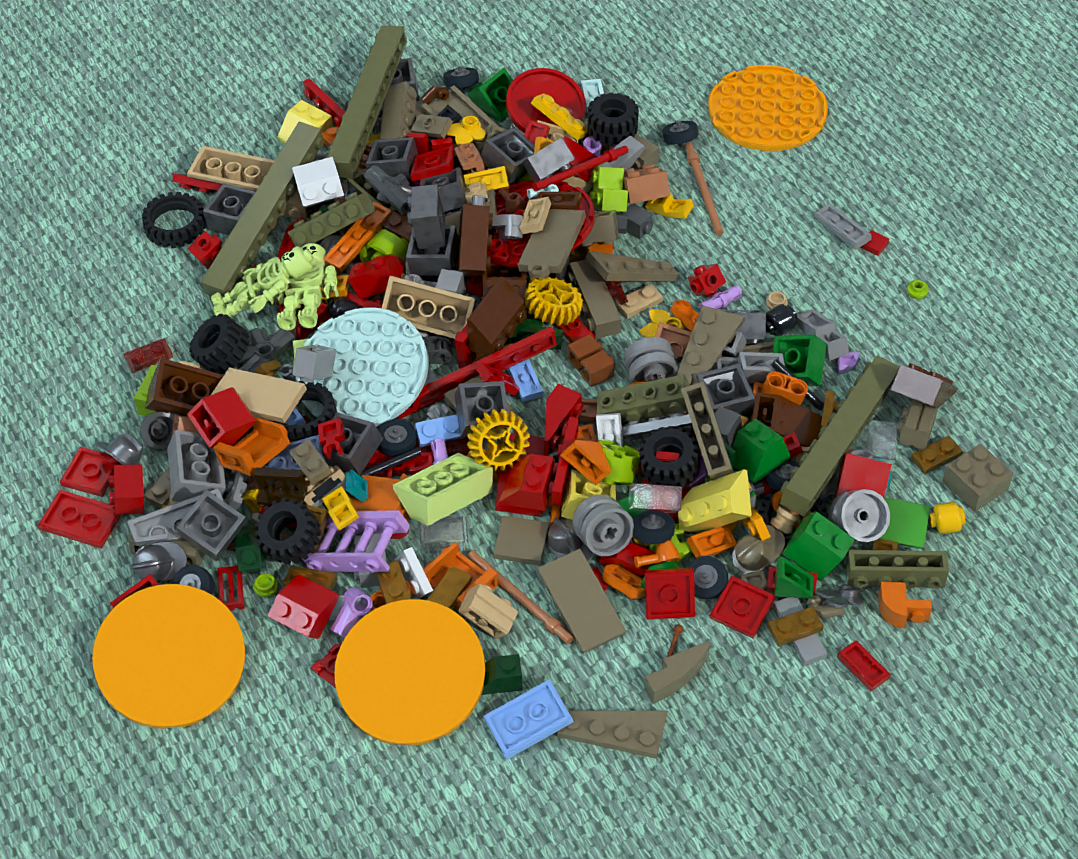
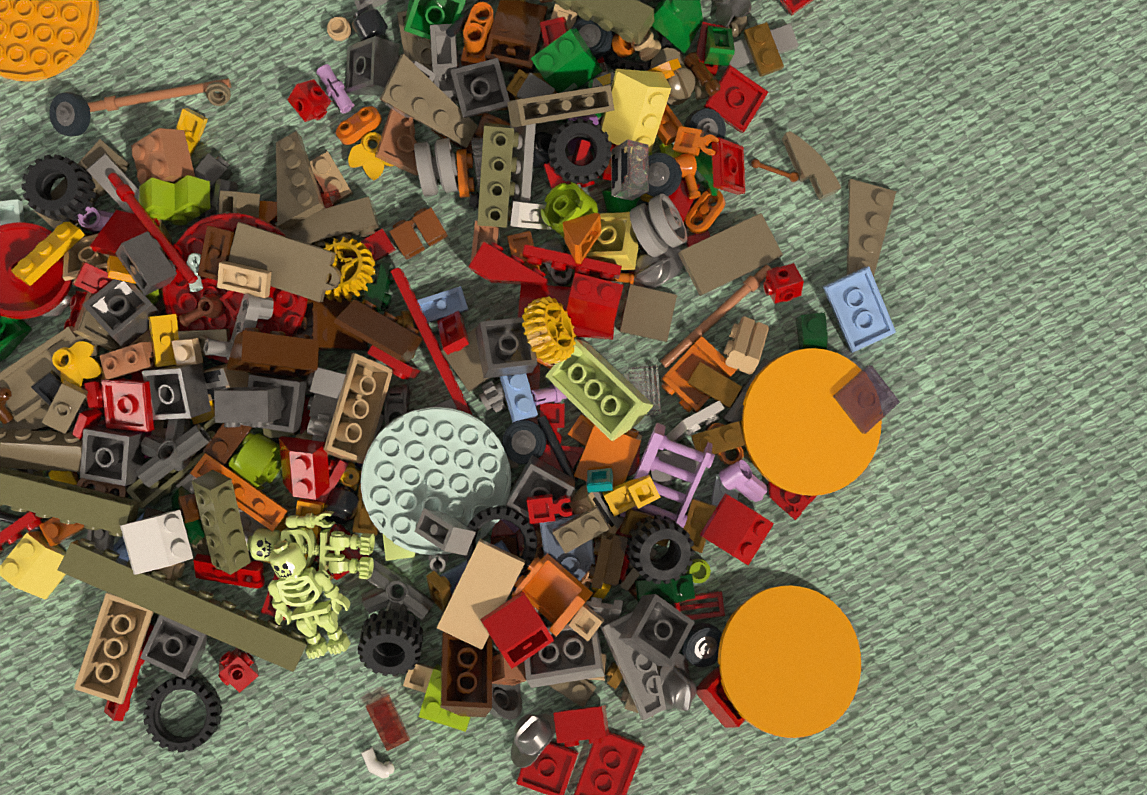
camera: 90 degrees left, 35 degrees up
(111, 346) = (375, 766): none -> white arm
(223, 474) = (586, 622): none -> tan plate
(432, 722) = (866, 399): none -> tile
(552, 646) = (783, 283): none -> red brick
(689, 553) = (692, 140): none -> orange plate
(707, 223) = (218, 99): none -> dark tan plate
(759, 569) = (702, 73): none -> reddish brown axle

